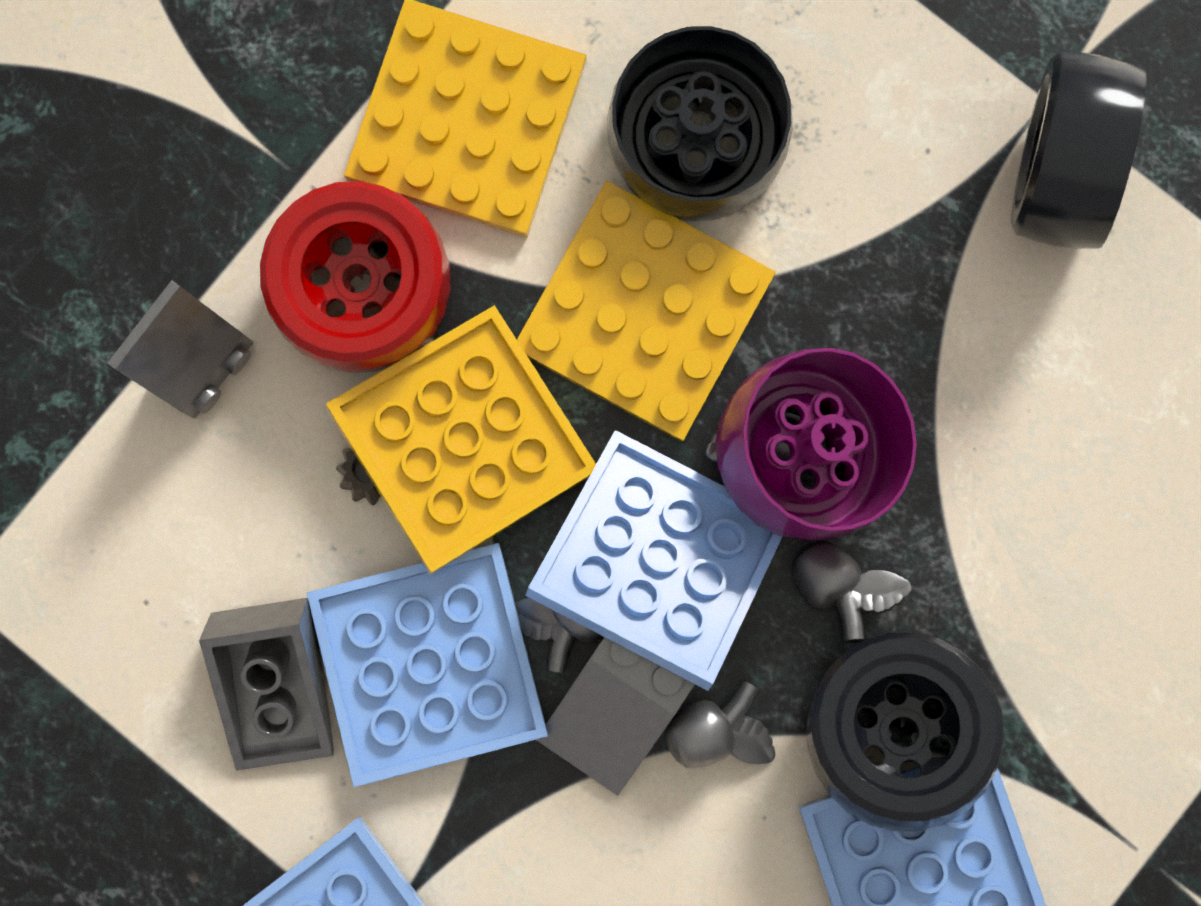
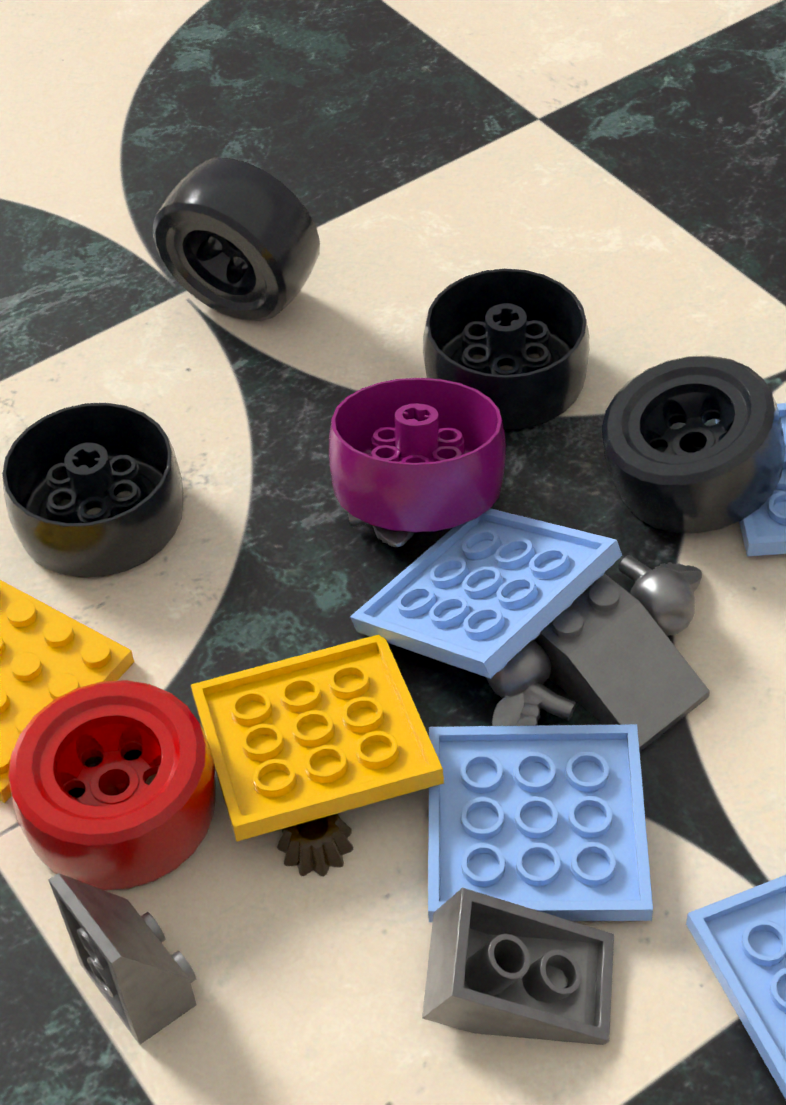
camera: 75 degrees left, 35 degrees down
(644, 311) = (244, 580): yellow plate -> none
(832, 578) = (541, 486): flat silver piece -> none
(1058, 451) = (506, 320): none -> black wheel

